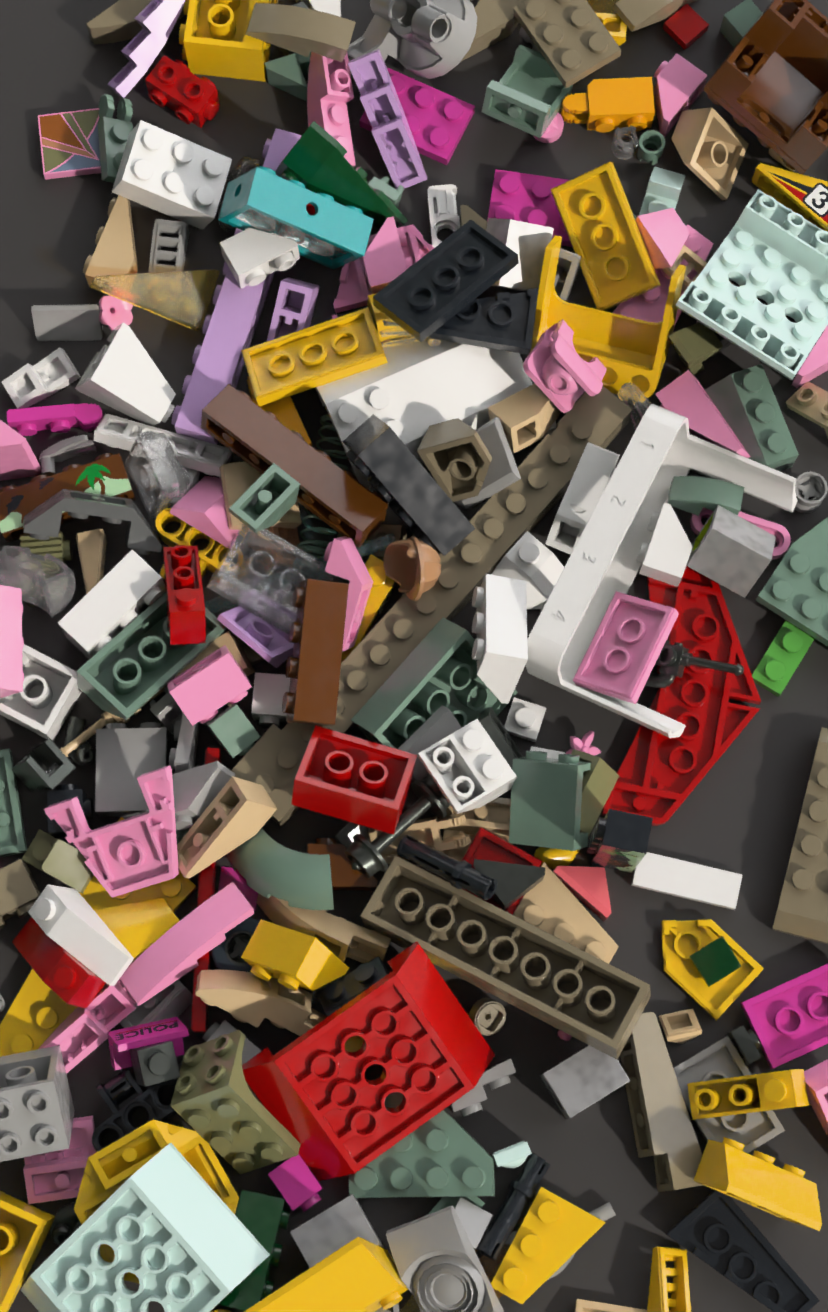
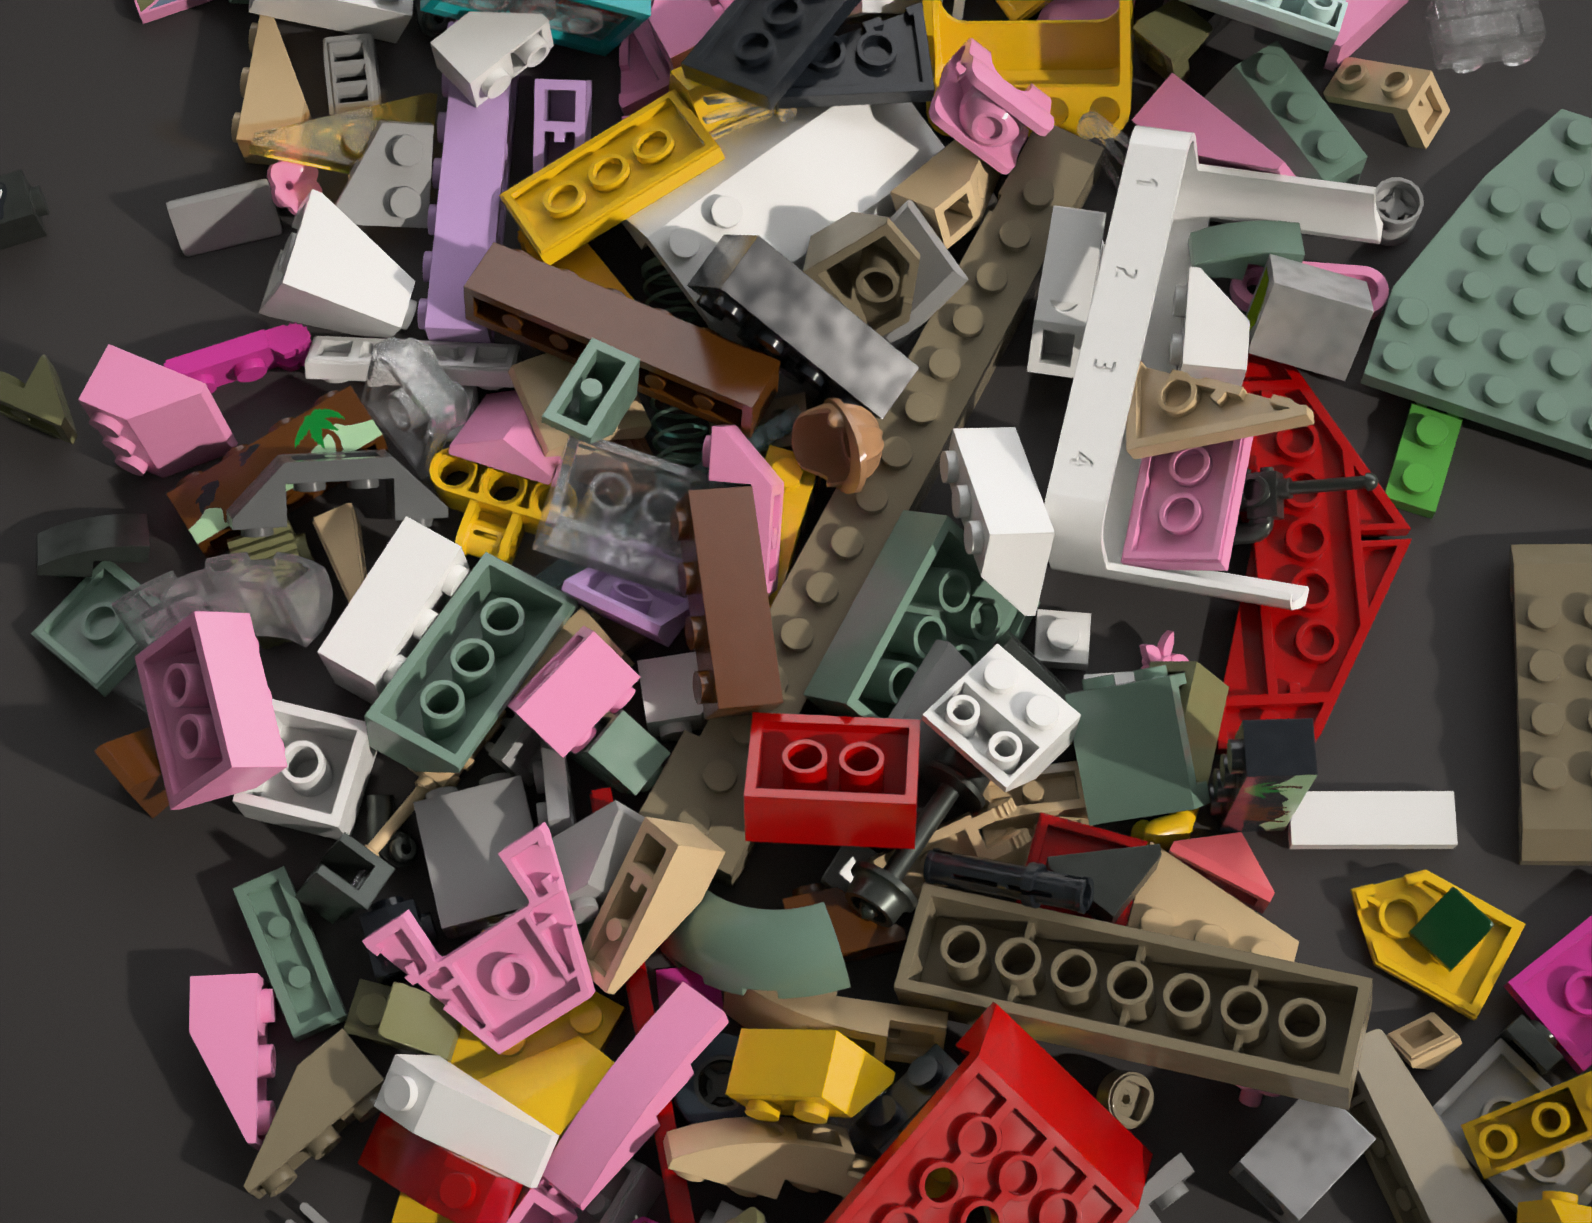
camera: 10 degrees left, 5 degrees down
(42, 380) = (206, 311): white slope -> none
(64, 450) = (266, 403): light grey piece -> none
(176, 322) = (391, 177): none -> light grey wing
(184, 595) = (503, 567): red slope -> none
(532, 563) = (1020, 401): white slope -> none
(635, 596) = (1185, 413): none -> tan wing

